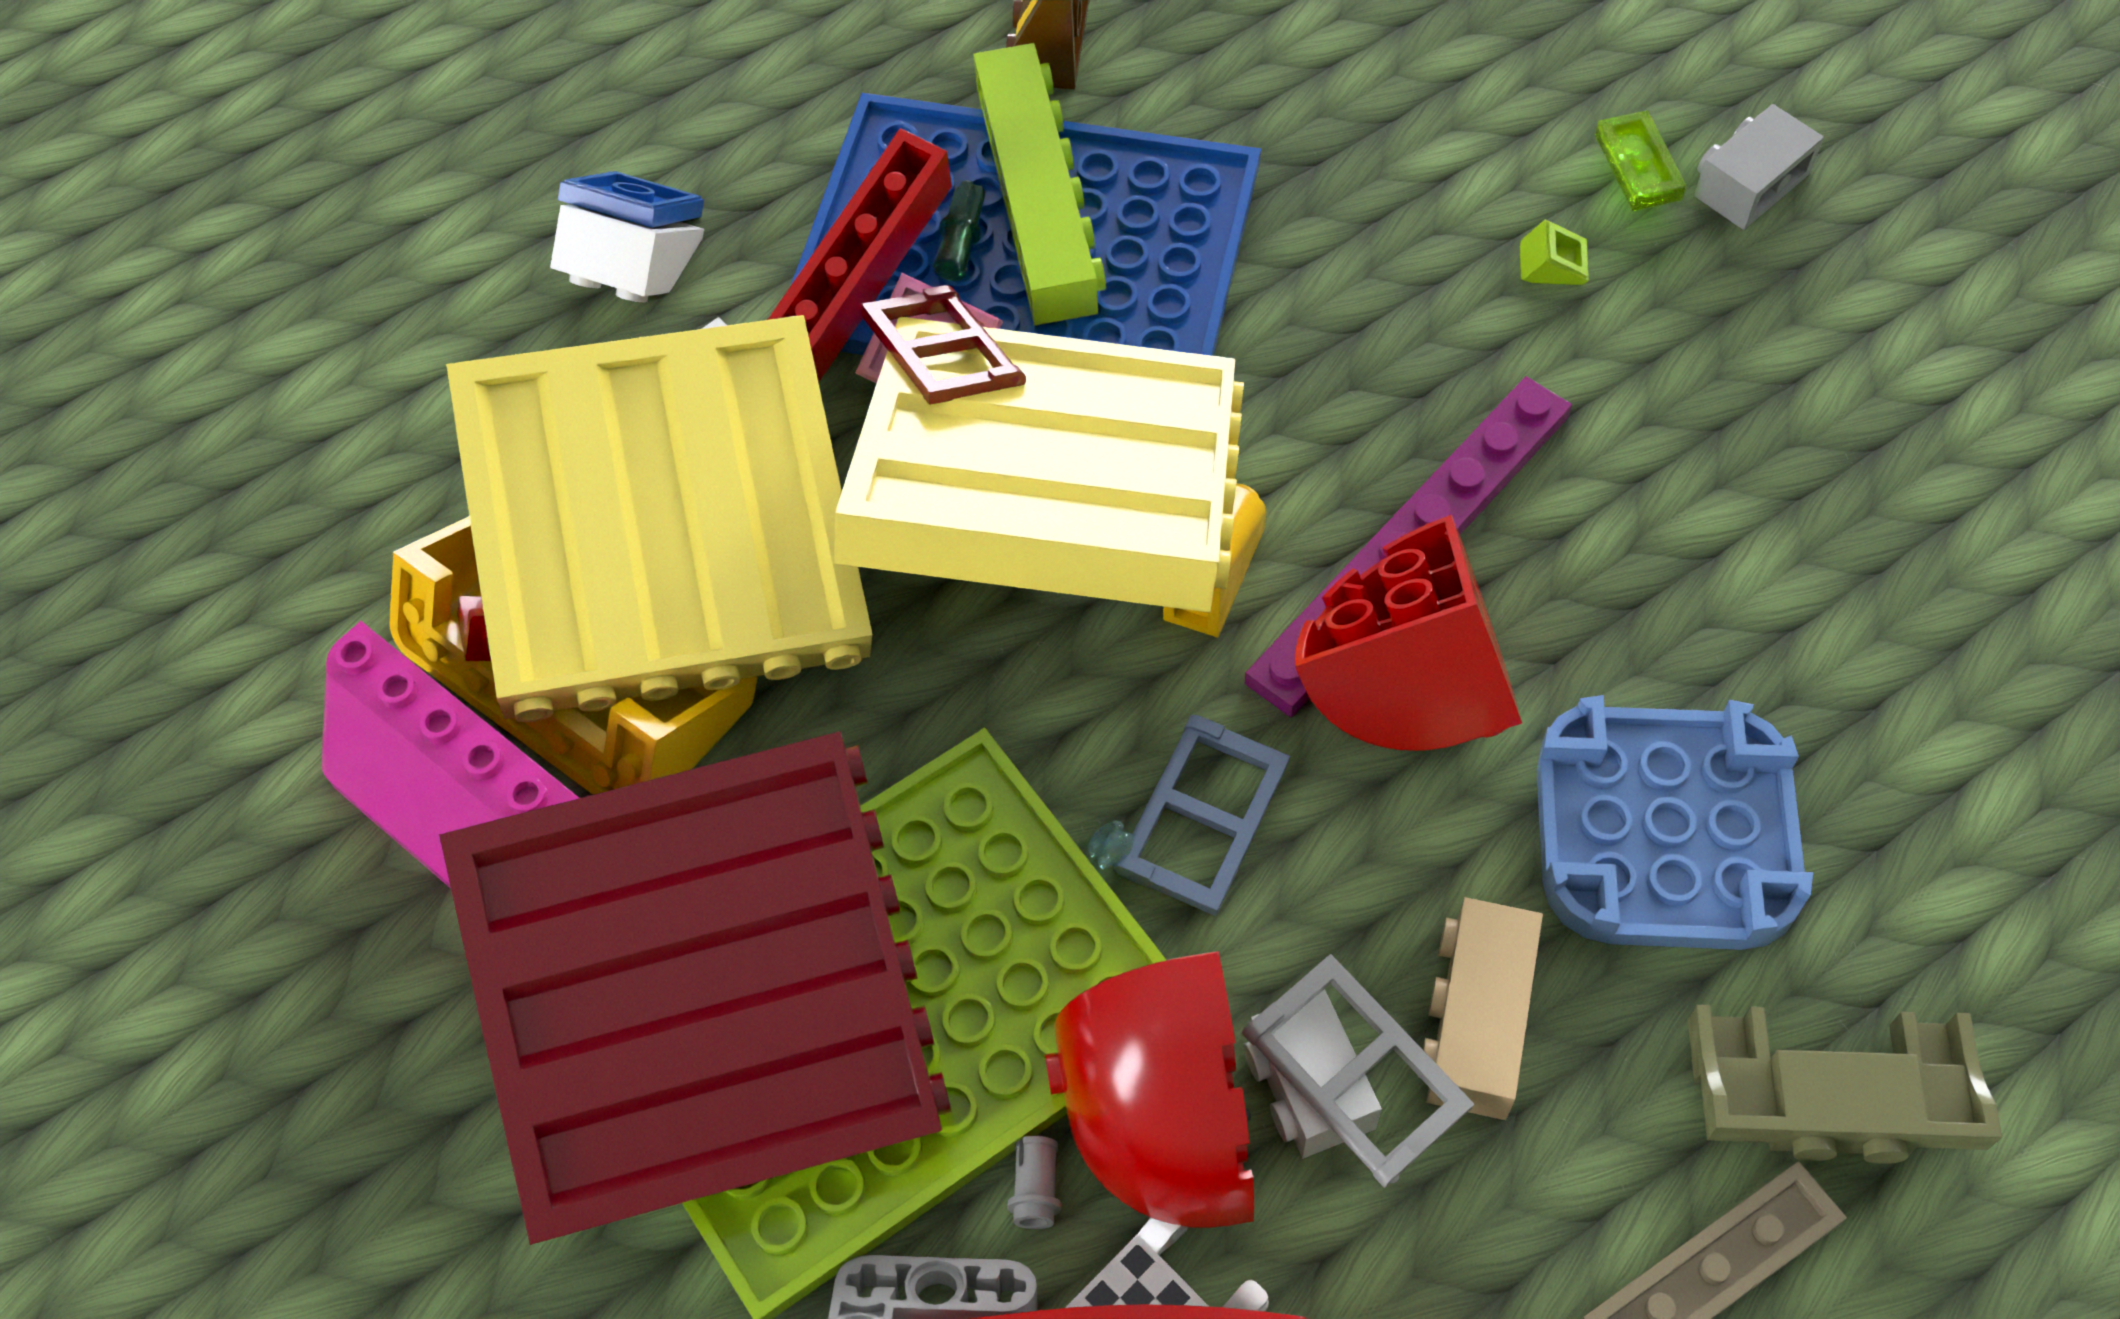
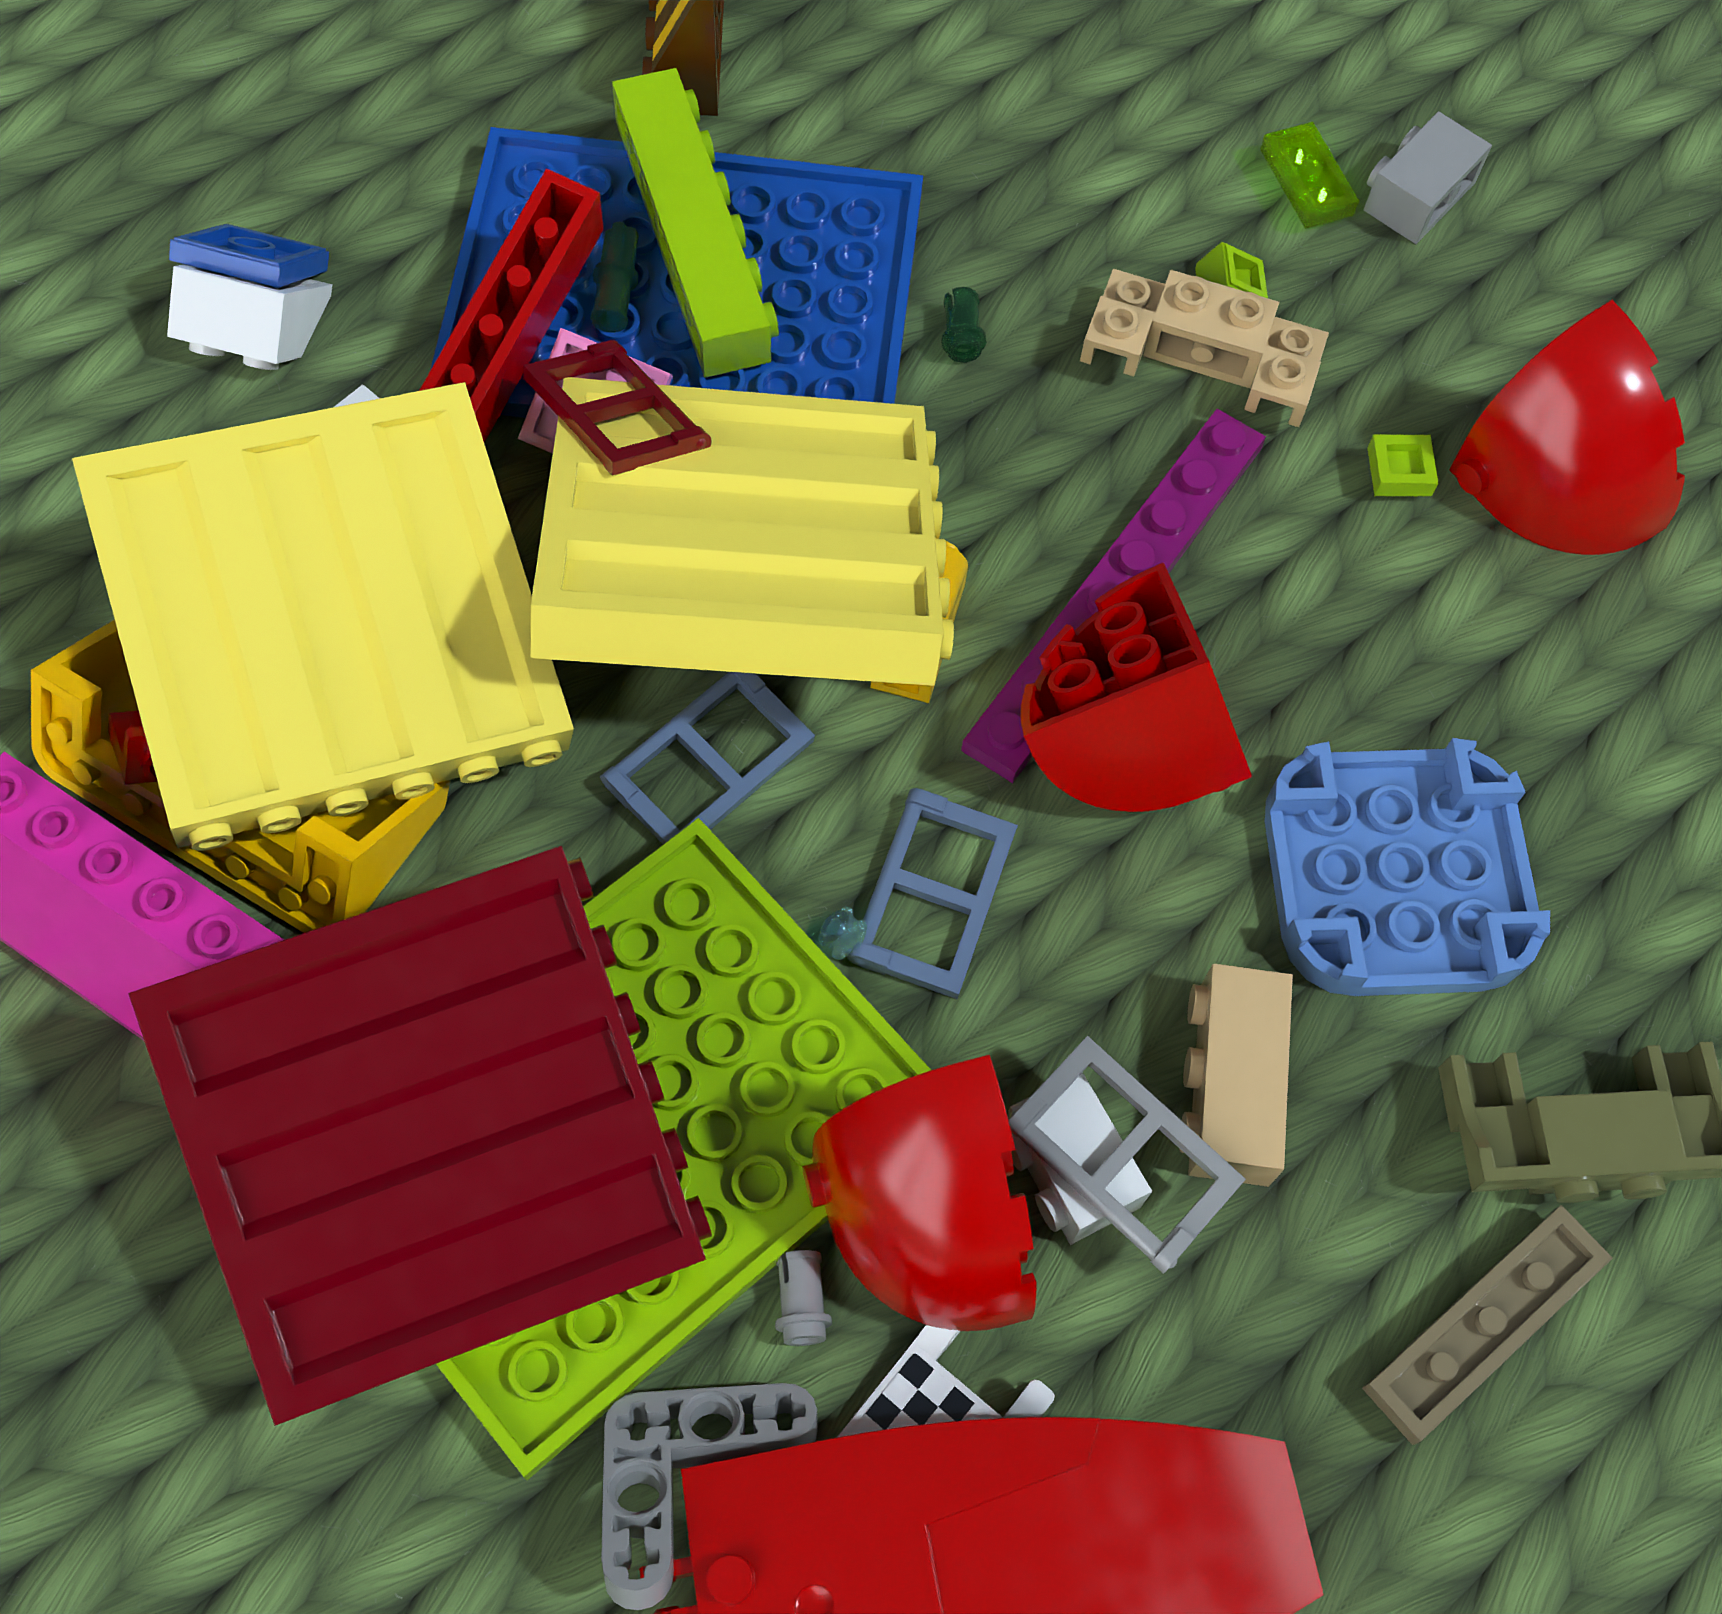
camera: 15 degrees left, 5 degrees up
(977, 645) = (680, 727): none -> sand blue window
(1285, 298) = (963, 334): none -> clear green pin
(1524, 304) = (1210, 333): none -> tan bracket
(1707, 438) = (1402, 465): none -> lime plate
(1884, 423) = (1579, 443): none -> red brick

